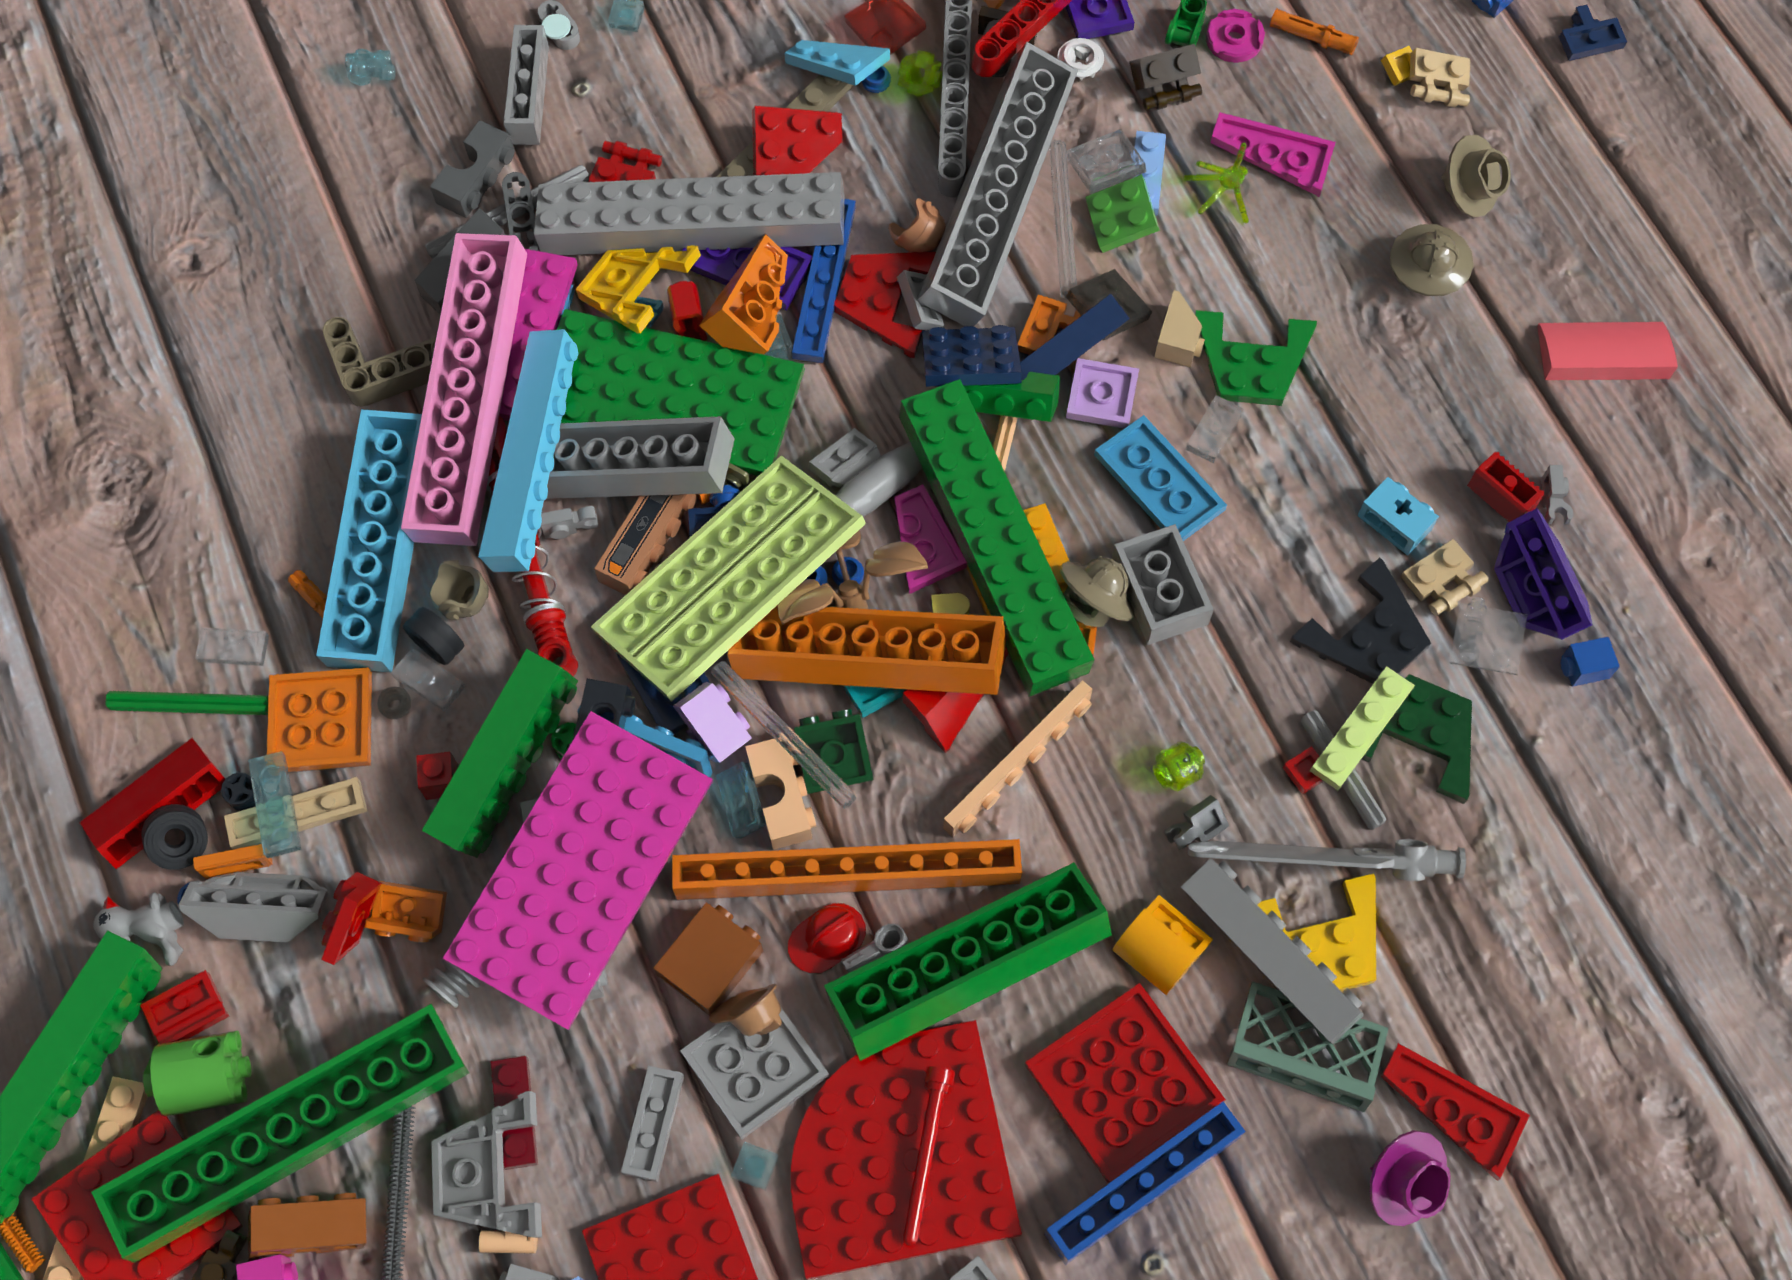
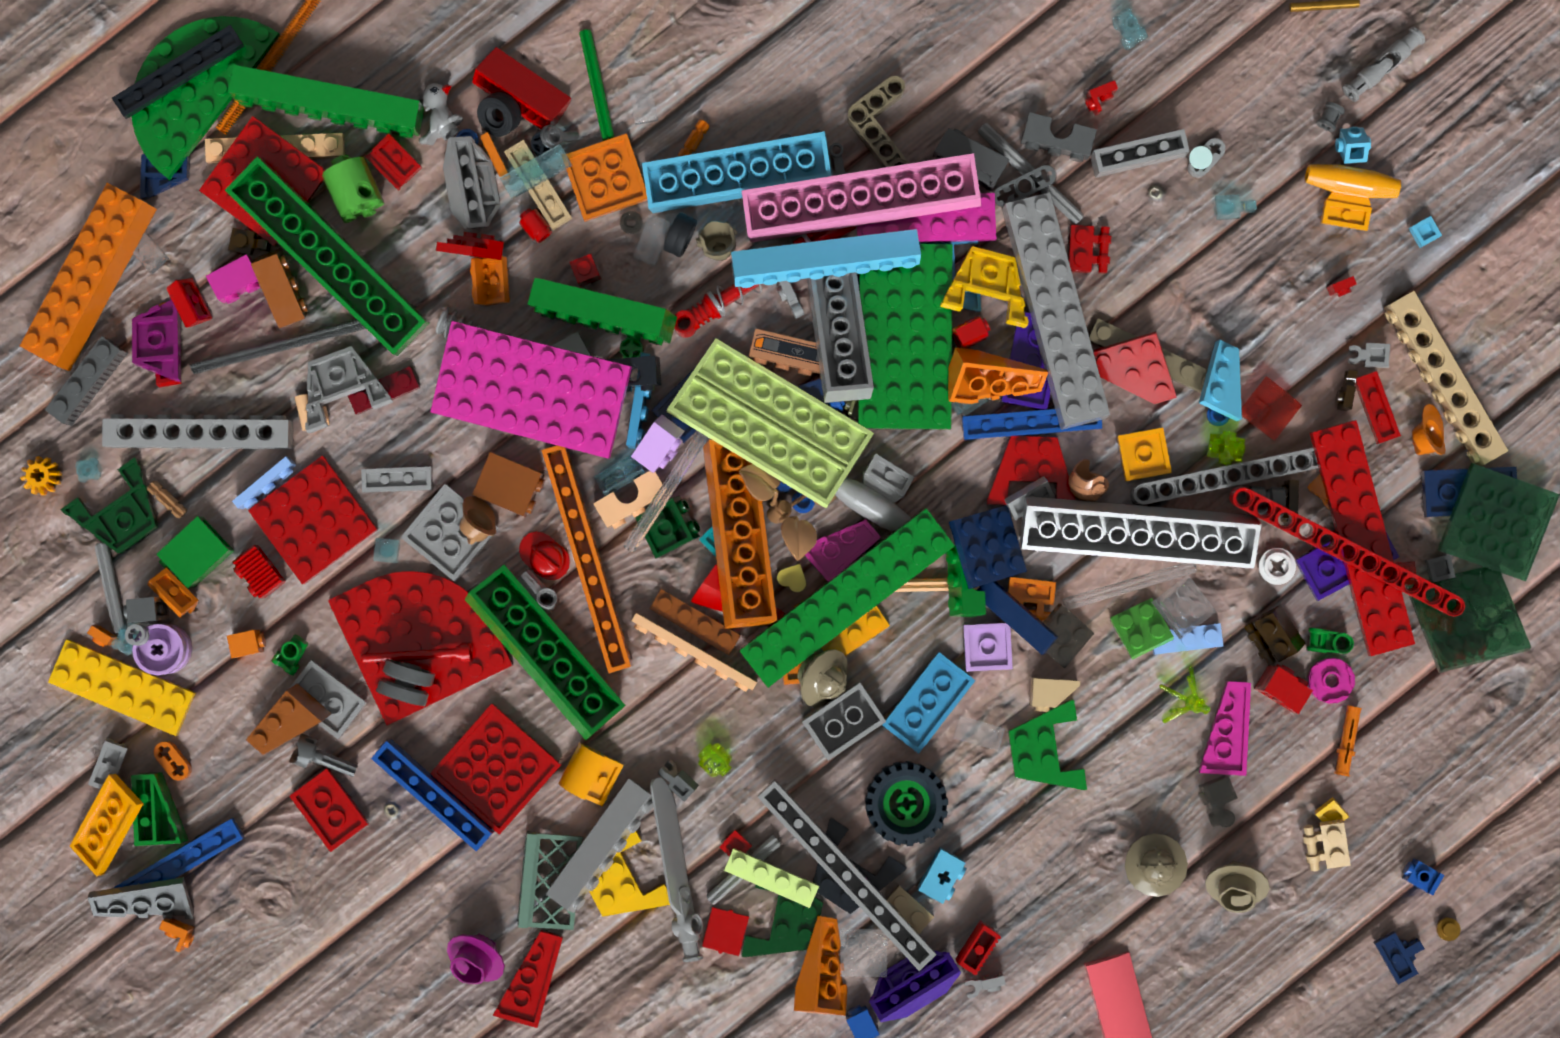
camera: 75 degrees right, 20 degrees up
(234, 766) = (552, 136): none -> flat silver plate
(350, 830) = (535, 225): none -> red brick
(441, 118) = (1100, 93): none -> red bracket
(902, 165) = (1144, 454): none -> light orange plate
(960, 1170) = (404, 686): none -> dark grey wheel
(976, 752) = (695, 622): none -> dark orange plate
(1233, 78) = (1284, 688): none -> red brick
(1318, 527) = (909, 828): none -> black wheel
(1354, 181) = (1215, 796): none -> clear smoke brick
(1375, 622) = (847, 874): none -> light grey brick
(1426, 815) = (725, 931): none -> red piece
(1529, 706) = (819, 981): none -> orange wedge

